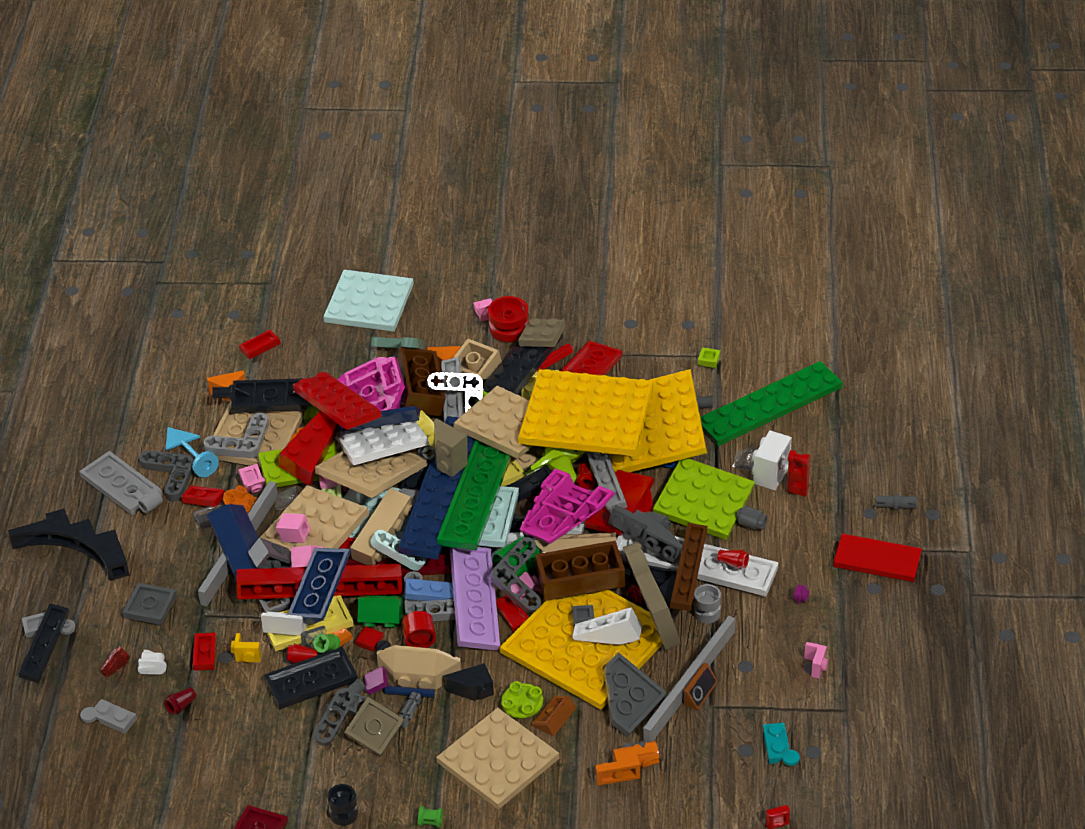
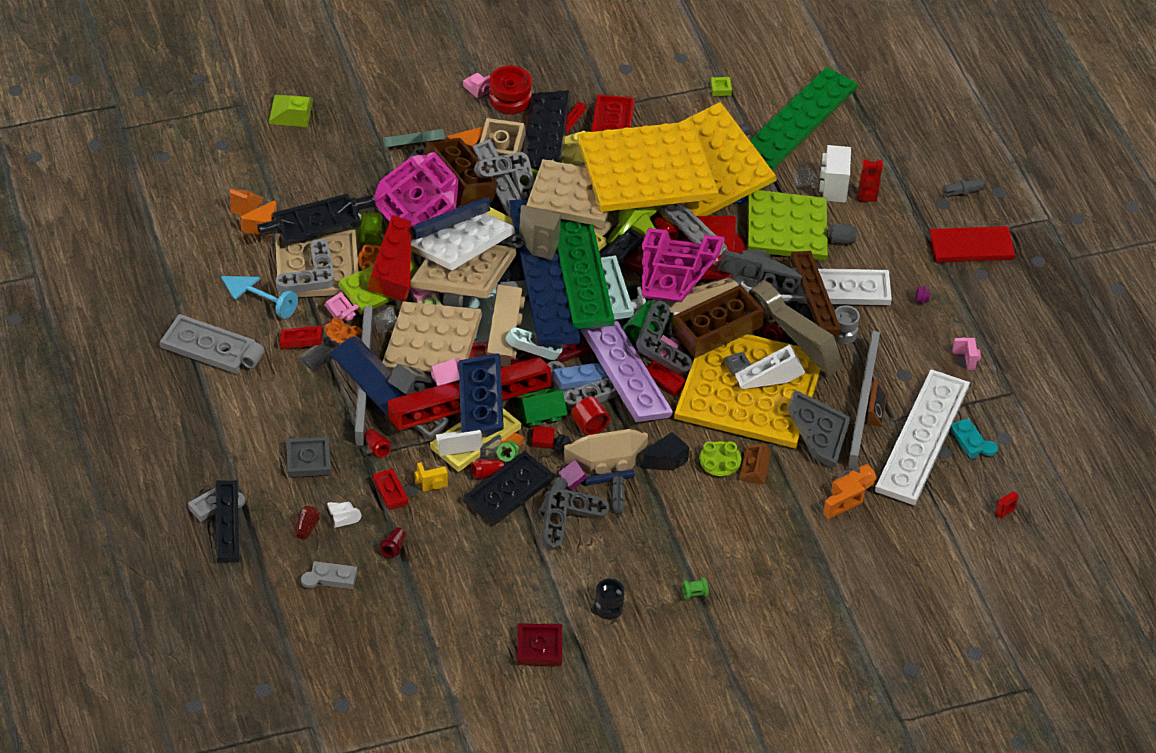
camera: 25 degrees left, 5 degrees up
(79, 536) = (201, 407): black arch -> none
(180, 466) = (257, 316): dark grey beam -> none
(216, 608) = (377, 443): none -> red cone
(221, 364) = (243, 201): none -> orange slope
(259, 344) = (267, 170): red tile -> none
(293, 528) = (419, 346): bright pink brick -> none
(309, 297) = (291, 110): none -> lime slope
(336, 400) = (403, 209): red plate -> none
(368, 300) = (354, 100): light aqua plate -> none
(374, 726) = (599, 518): dark tan plate -> none
(498, 758) = (725, 518): tan plate -> none
(542, 332) = (554, 96): dark tan plate -> none
(728, 730) = (922, 437): none -> white plate
(734, 558) = (849, 275): red cone -> none

